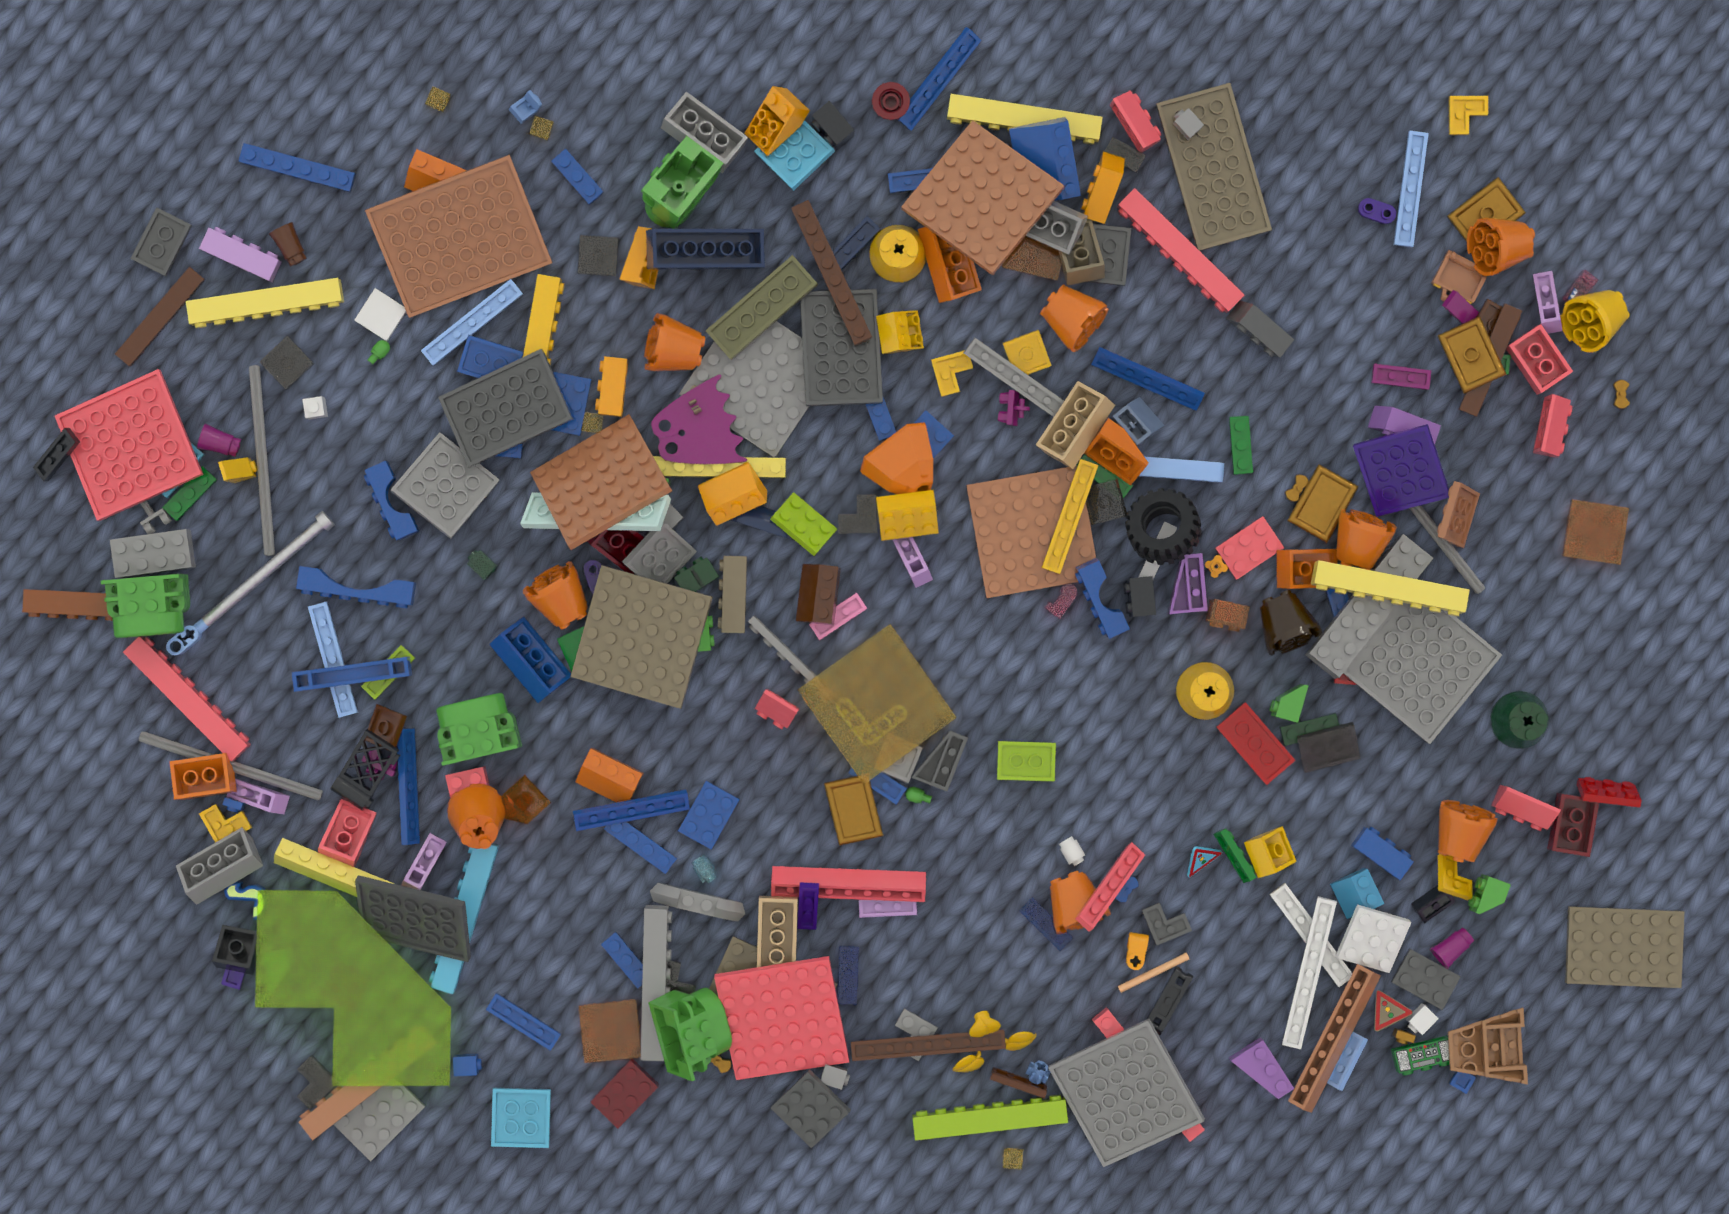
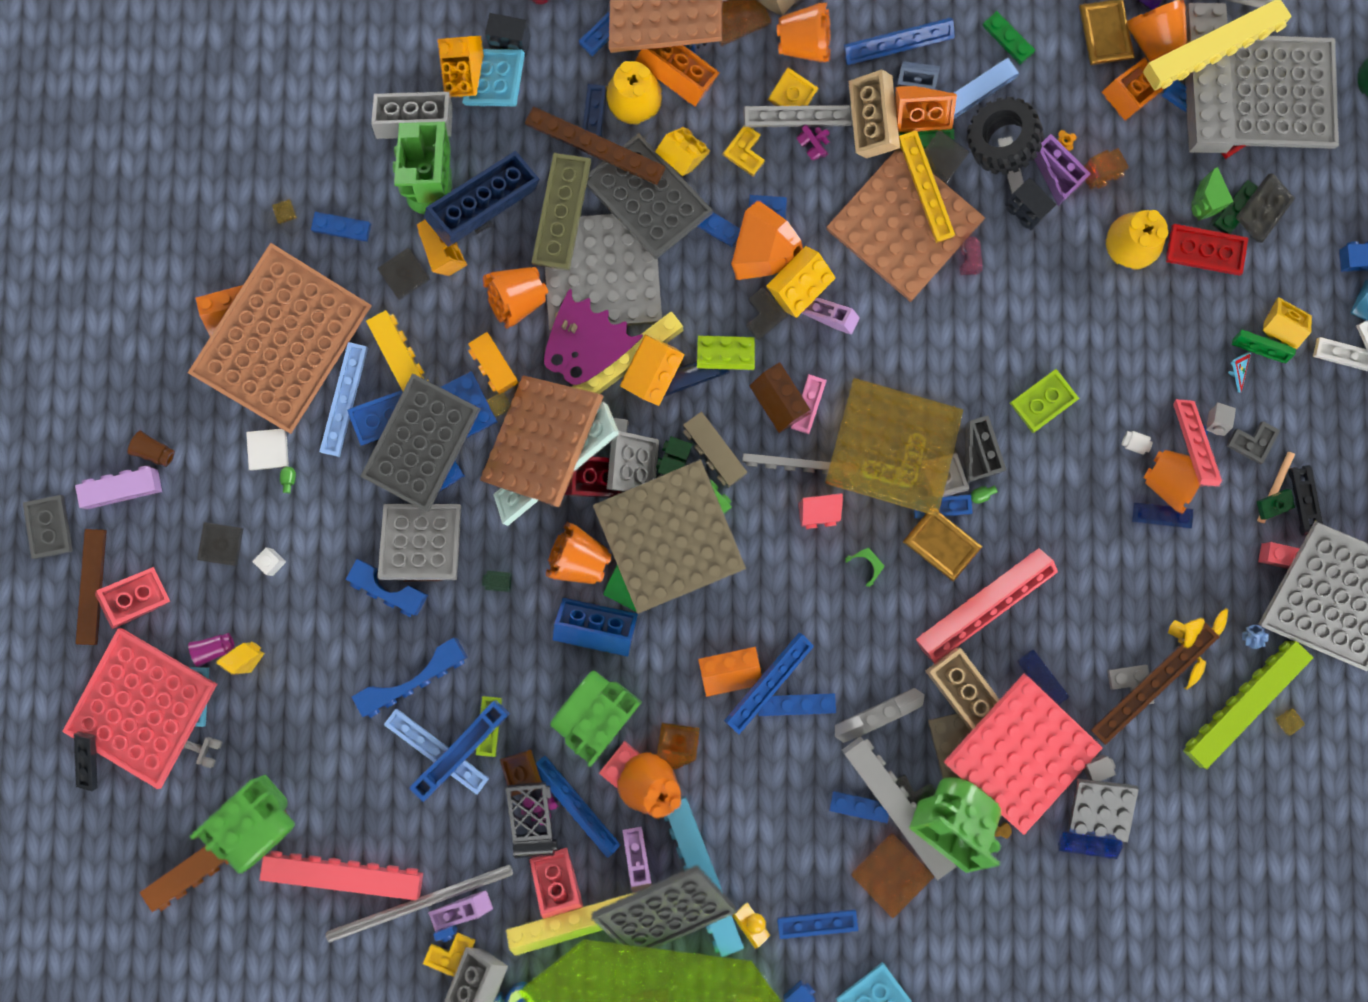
camera: 35 degrees left, 5 degrees down
(152, 553) = (224, 778): light grey brick -> none
(186, 352) = (132, 597): none -> coral slope
(189, 494) = (220, 709): green plate -> none
(202, 776) = (402, 931): orange slope -> none
(262, 463) = (257, 635): light grey axle -> none
(265, 301) = (165, 510): light yellow brick -> none
(297, 167) = (114, 387): blue plate -> none
(323, 522) = (308, 833): flat silver piece -> none
(438, 99) = (186, 251): clear yellow plate -> none
(472, 982) = (751, 924): none -> yellow tile
(526, 107) = (259, 203): medium blue bracket -> none
(592, 577) = (594, 523): plate -> none
(624, 1093) = (945, 917): dark red brick -> none
(704, 869) = (864, 684): clear light blue brick -> none
(708, 815) = (832, 639): blue plate -> none
(780, 1127) = (1090, 845): none -> clear blue plate
(789, 778) = (877, 564): none -> bright green helmet
(808, 906) = (969, 643): dark purple plate -> none
(882, 908) = (1027, 604): lavender tile -> none
(1018, 1082) = (1246, 657): reddish brown tile -> none
(1092, 577) = (981, 219): blue arch -> none
(1136, 946) = (1248, 478): light orange piece -> none
(1140, 985) = (1275, 504): none -> dark green plate
(1151, 885) = (1220, 419): none -> light grey brick
(1249, 547) = (1078, 108): coral plate -> none
(1287, 623) = (1157, 137): dark brown cone -> none
(1300, 482) = (1076, 31): pearl gold piece -> none

